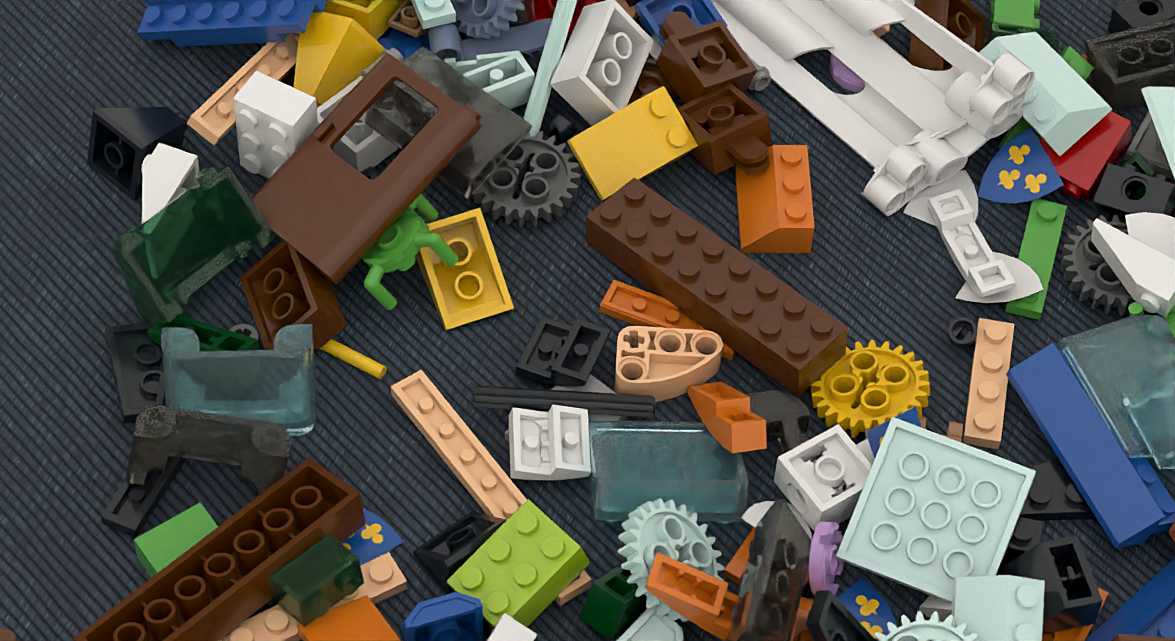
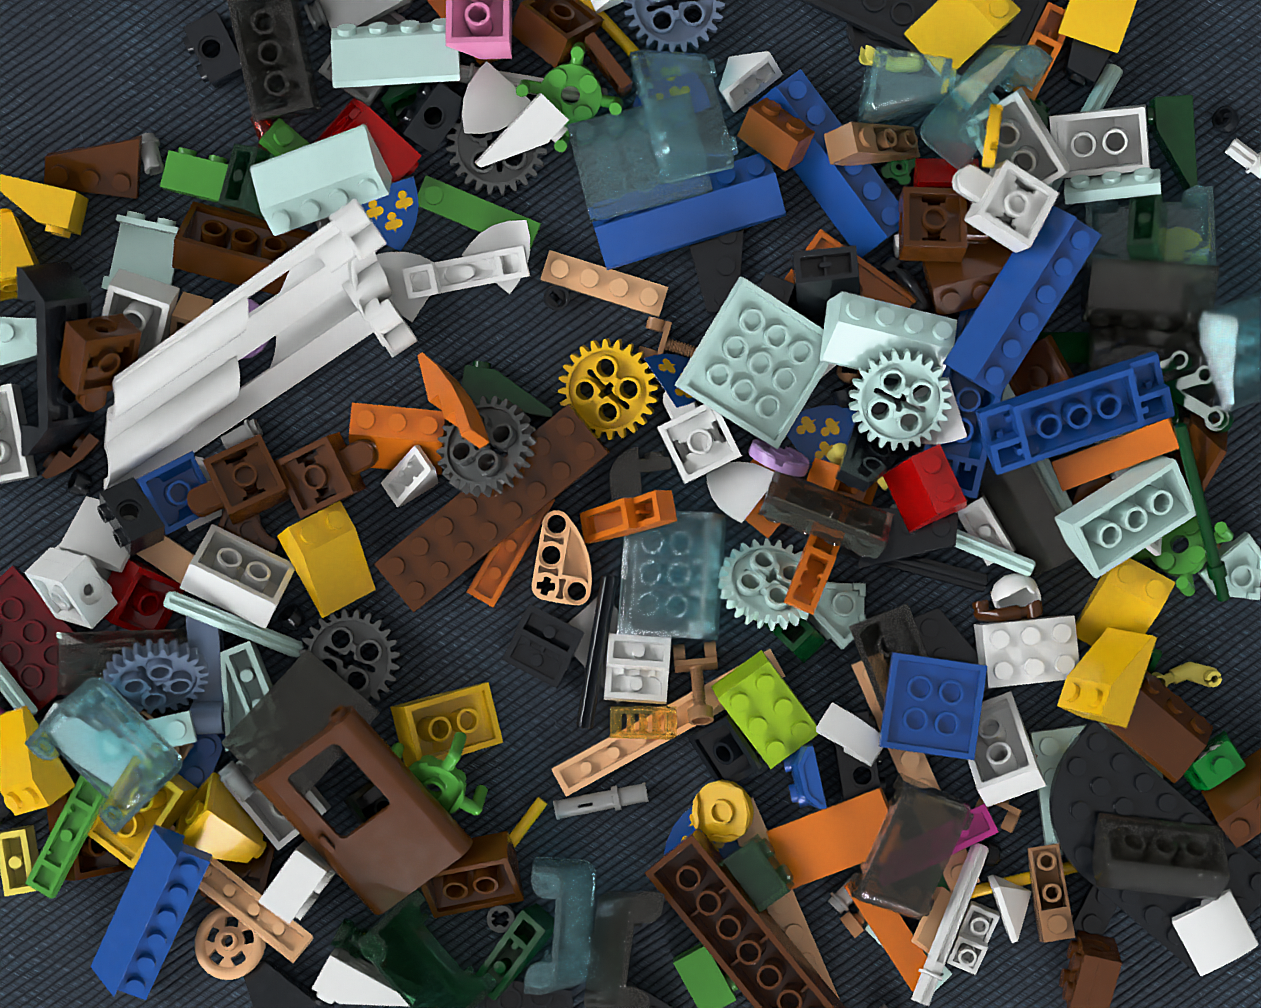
camera: 85 degrees left, 35 degrees up
(201, 89) = (204, 949): none -> light nougat plate
(388, 545) = (723, 811): none -> yellow tile
(392, 438) = (601, 801): none -> light grey pin
(492, 472) = (669, 713): none -> clear yellow slope
(562, 493) = (700, 712): none -> medium nougat bar
(733, 217) = (410, 477): none -> white slope
(760, 245) = (472, 472): none -> dark grey gear
(828, 221) = (453, 400): none -> orange slope
(846, 278) = (483, 381): none -> dark green slope

